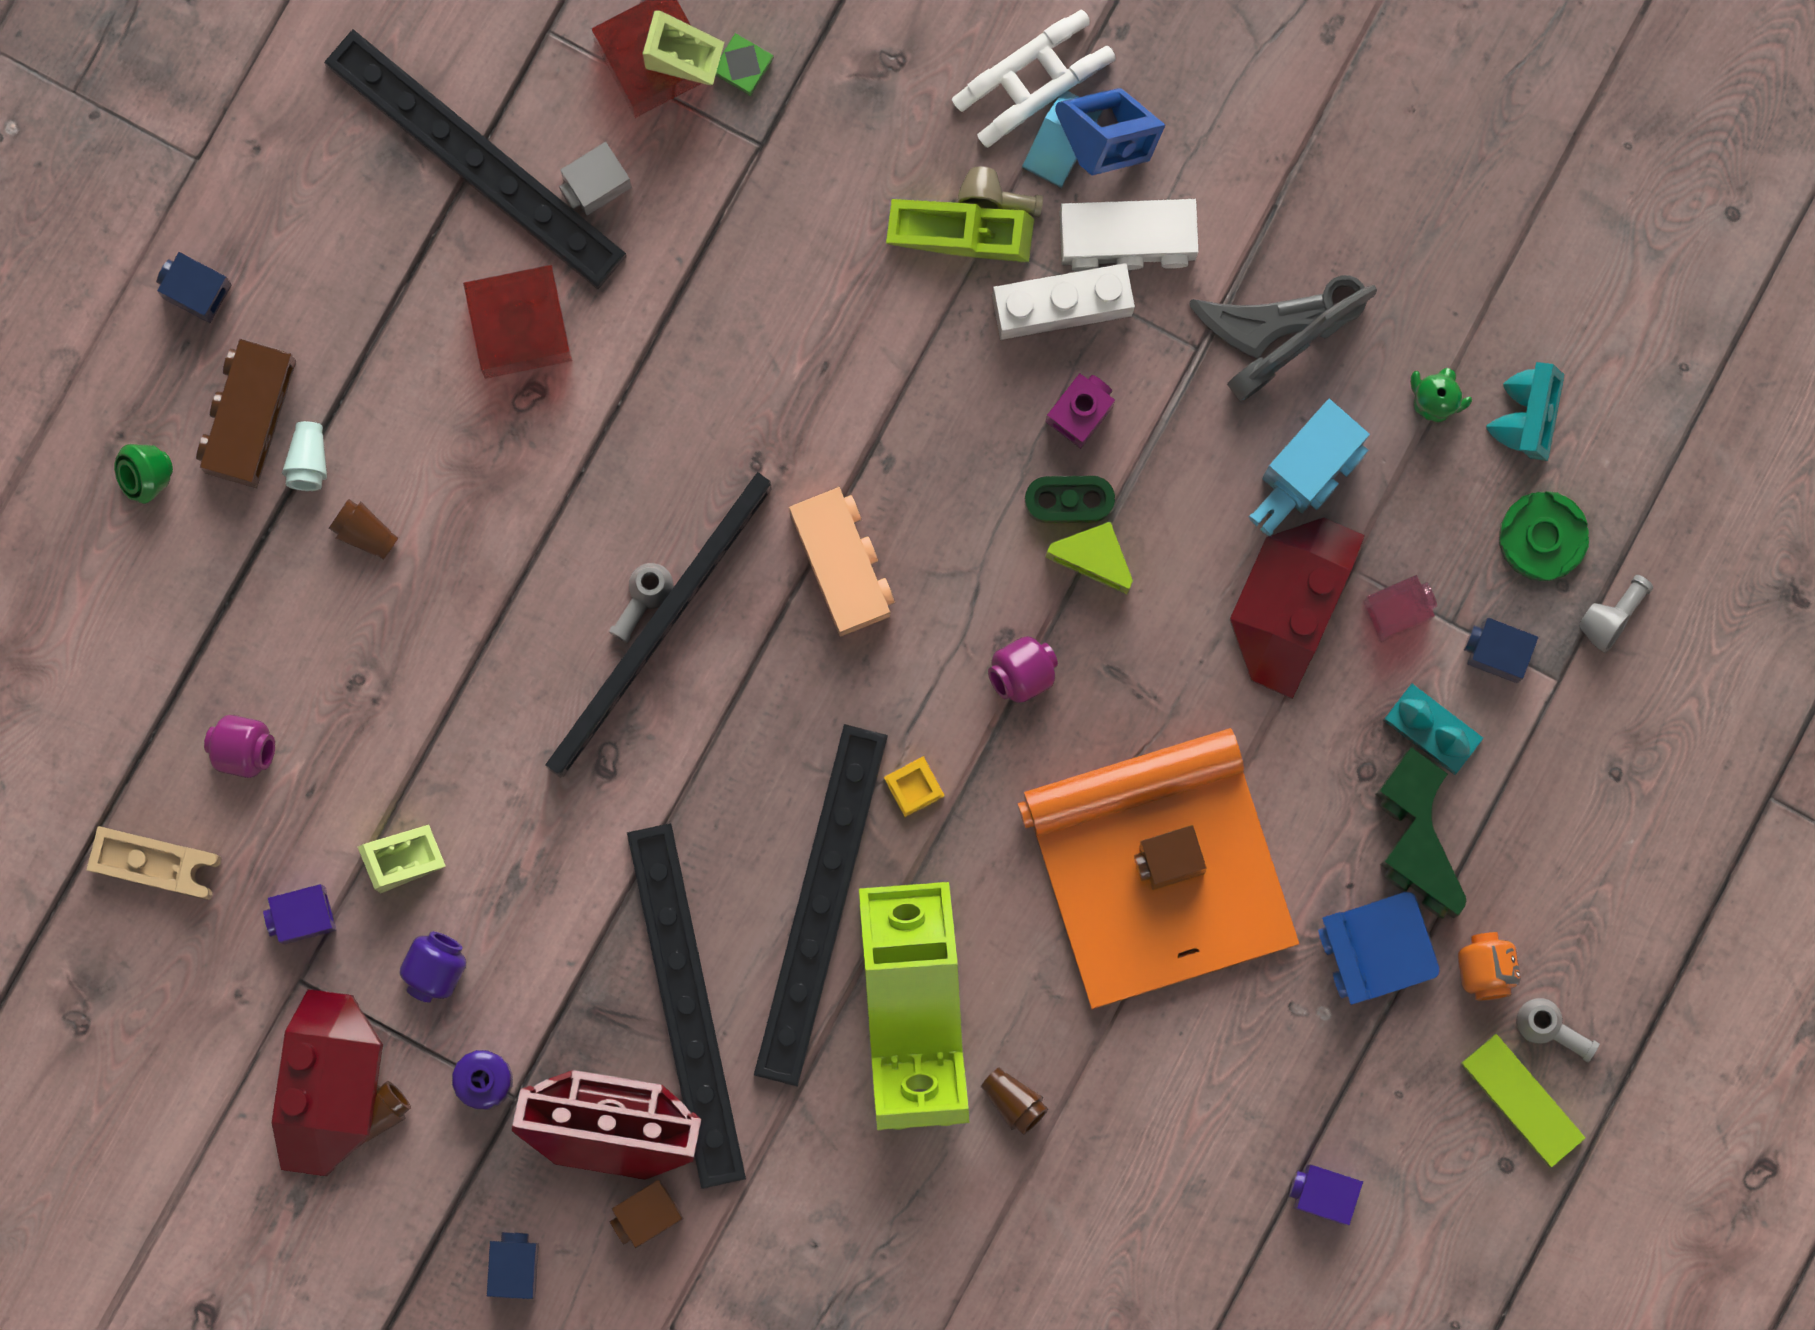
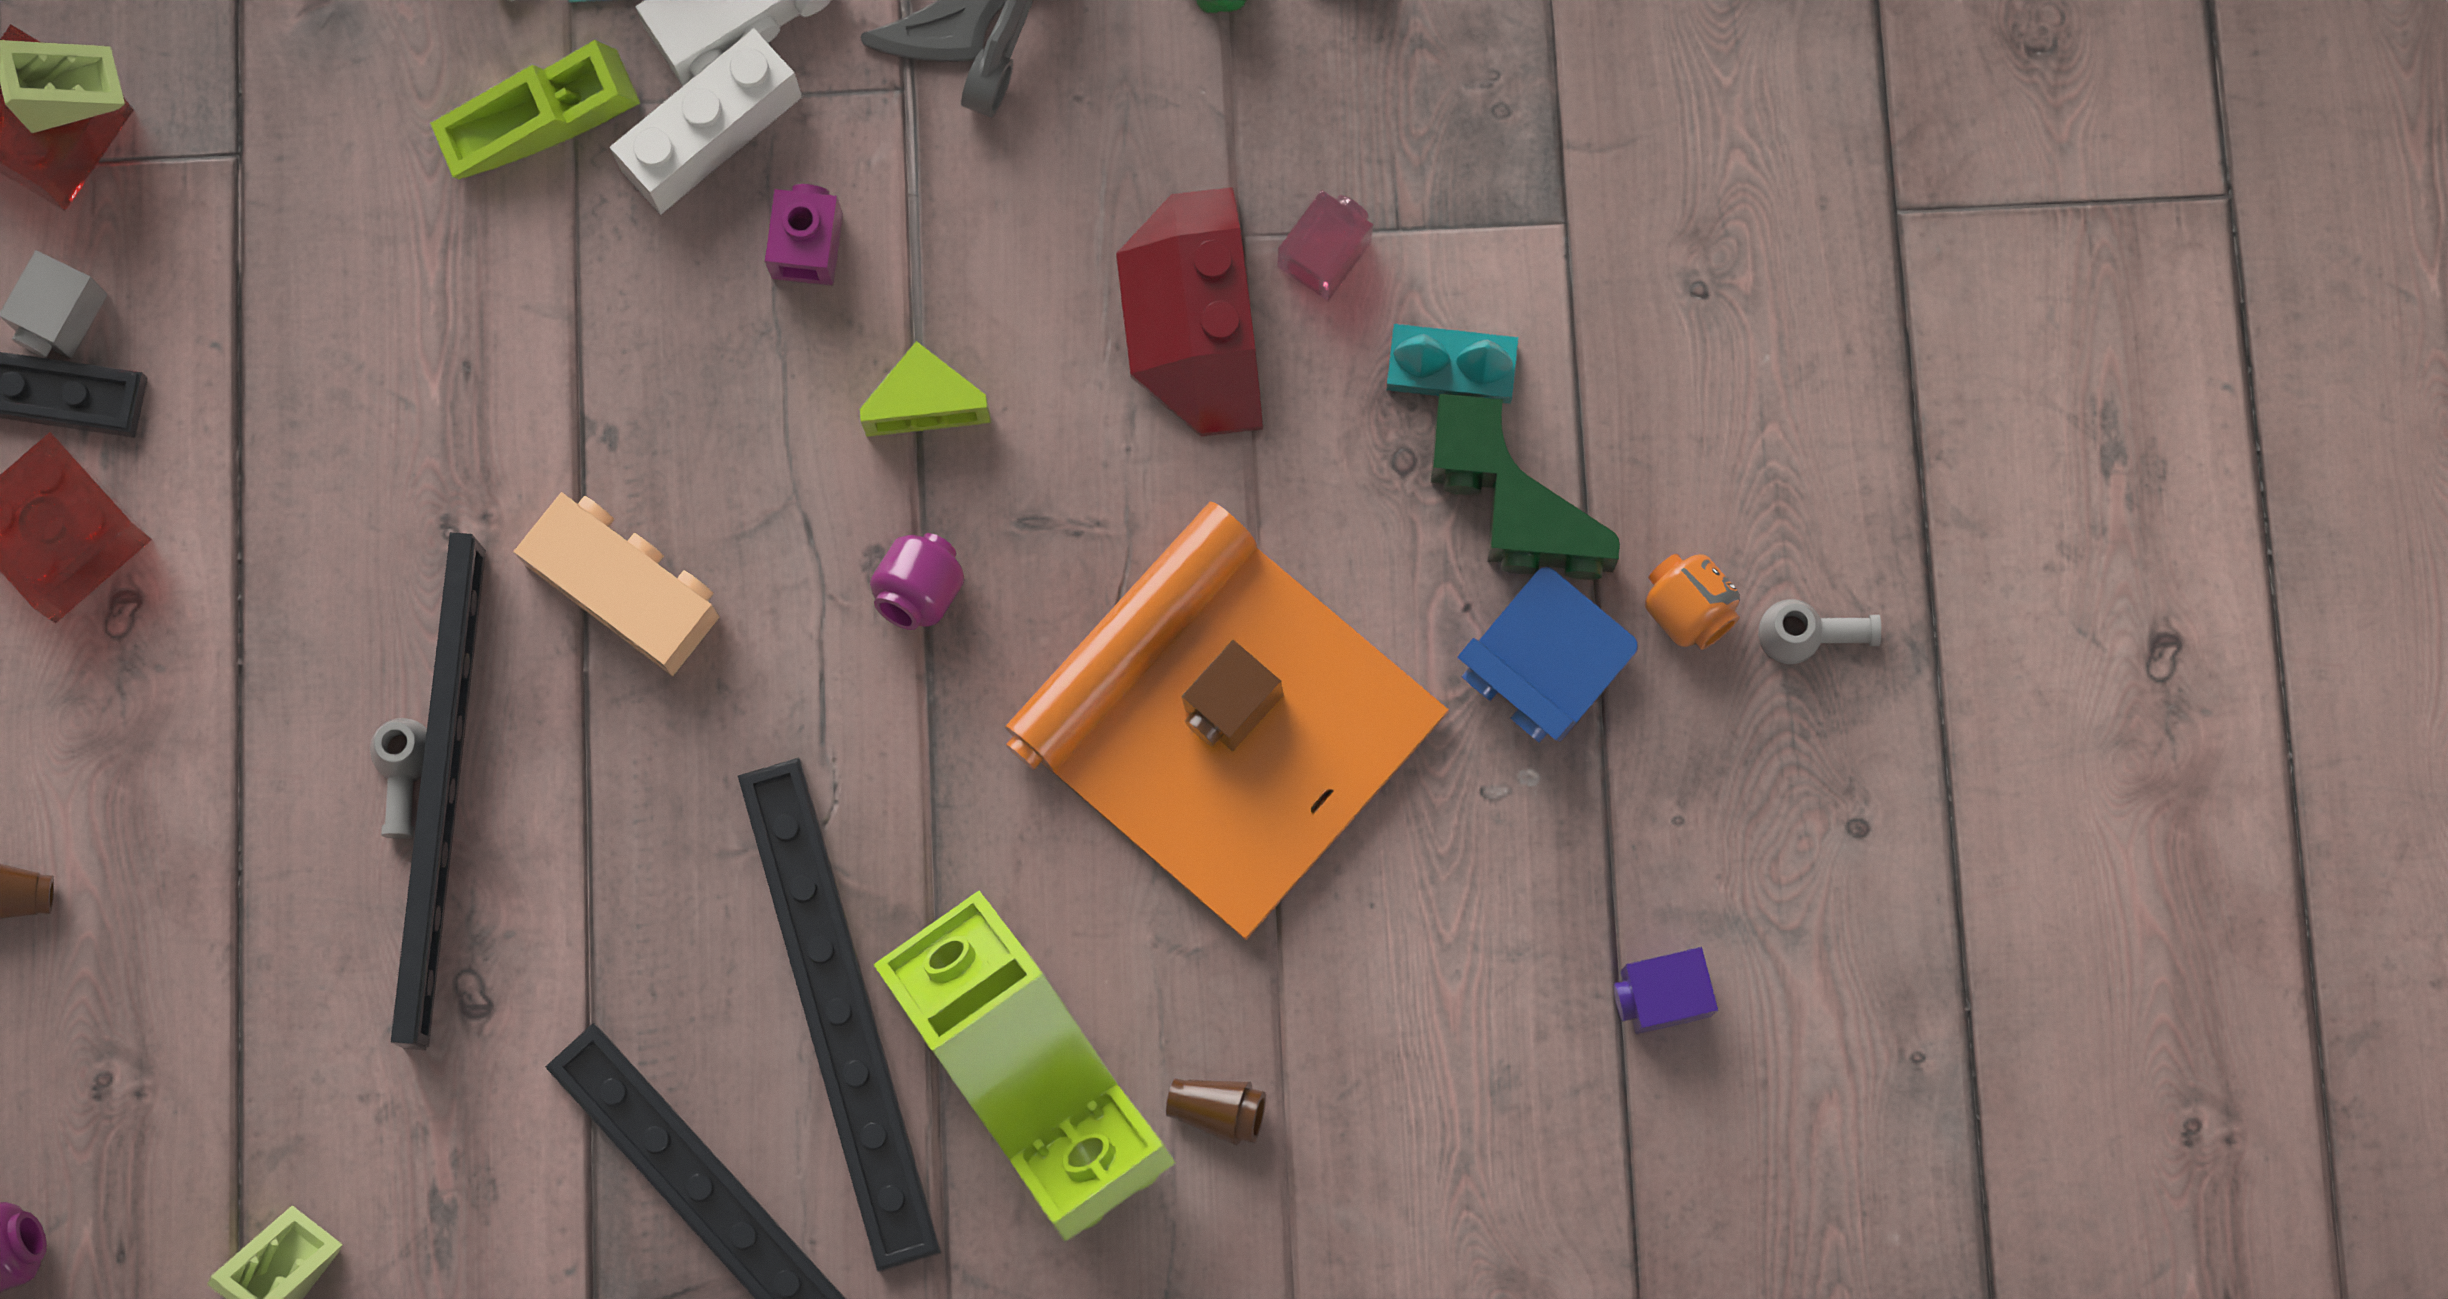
camera: 25 degrees left, 5 degrees down
(743, 64) = (159, 72): tile -> none
(914, 787) = (868, 801): yellow tile -> none
(984, 189) = (532, 43): dark tan bar -> none
(1069, 499) = (850, 345): dark green plate -> none
(1309, 463) = (1116, 132): medium azure brick -> none
(1500, 649) = (1475, 222): dark blue brick -> none
(1523, 1100) = (1830, 737): lime tile -> none
(1544, 536) = (1444, 65): green tile -> none
(1606, 623) = (1579, 120): light grey bar -> none

